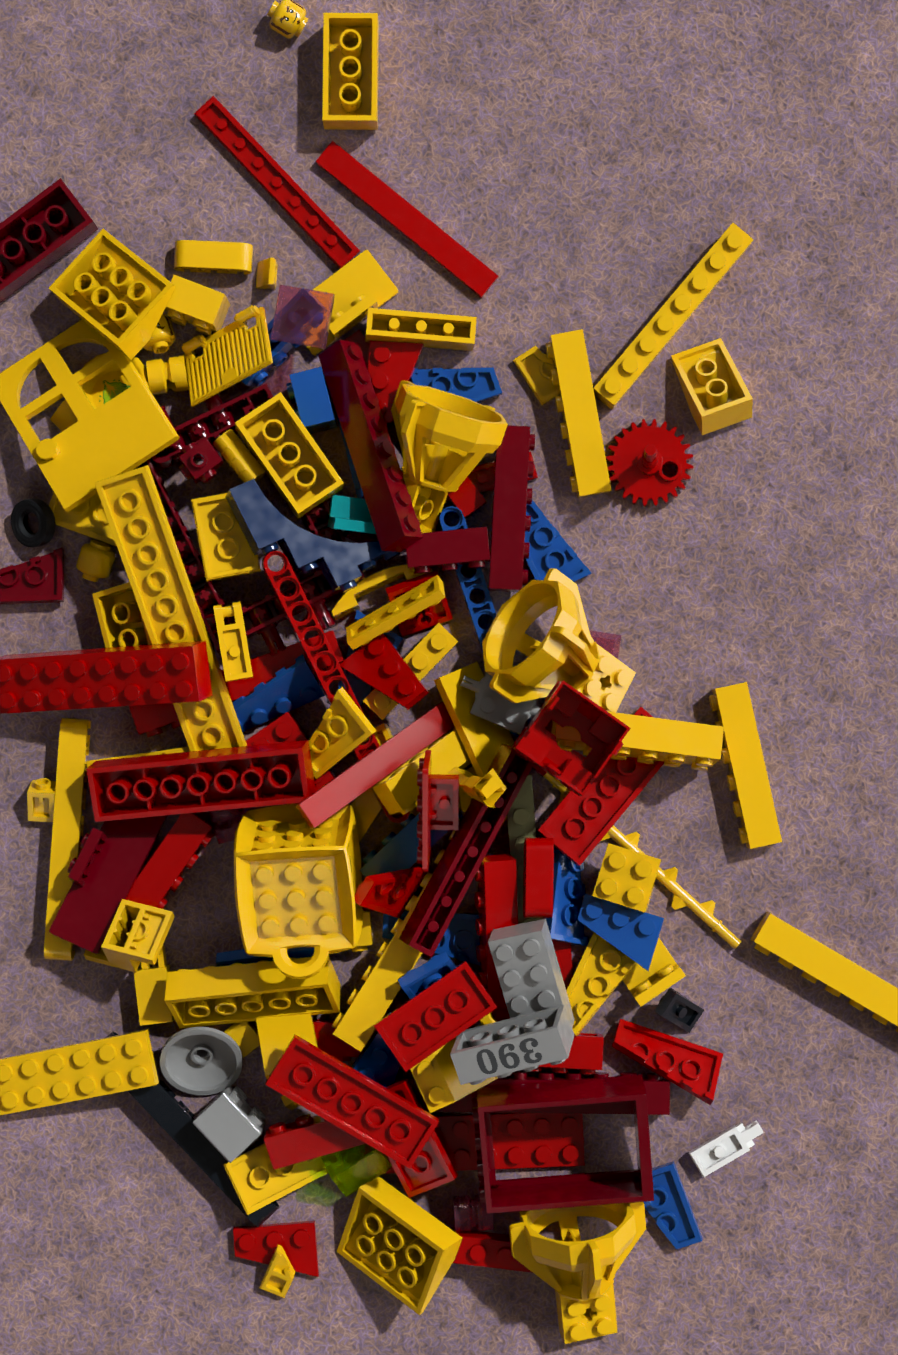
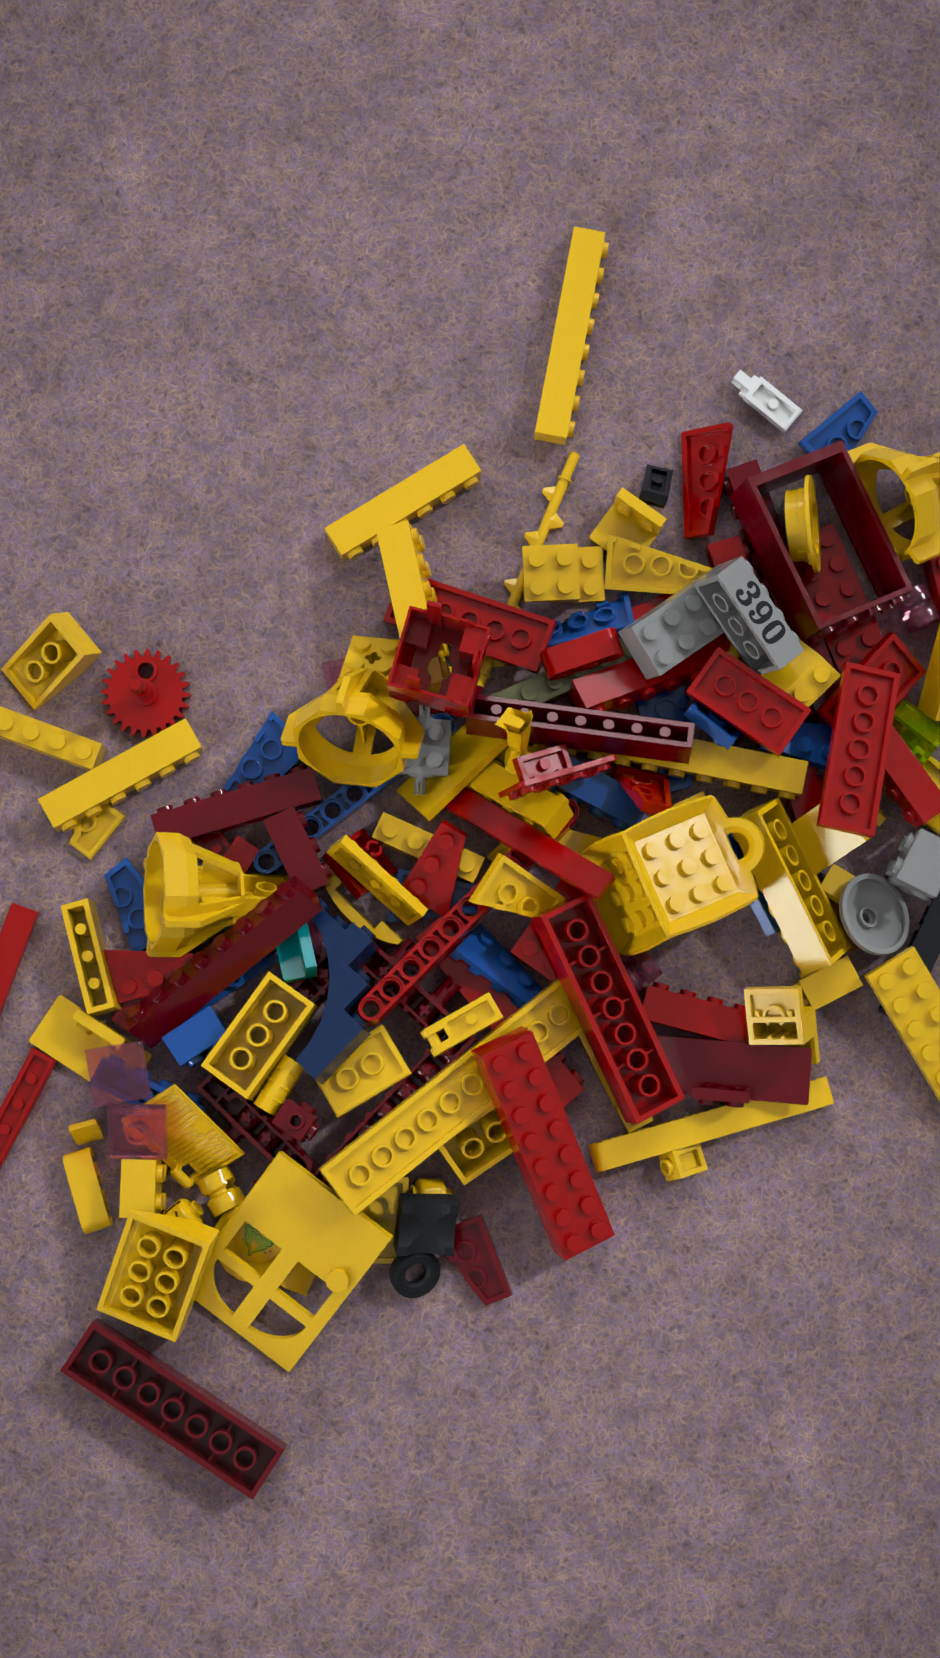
camera: 120 degrees left, 5 degrees down
(69, 547) = (426, 1224): none -> black brick
(244, 316) = (137, 1131): none -> clear pink tile
(586, 1133) = (803, 524): none -> yellow piece
(625, 928) = (598, 561): blue wing -> none

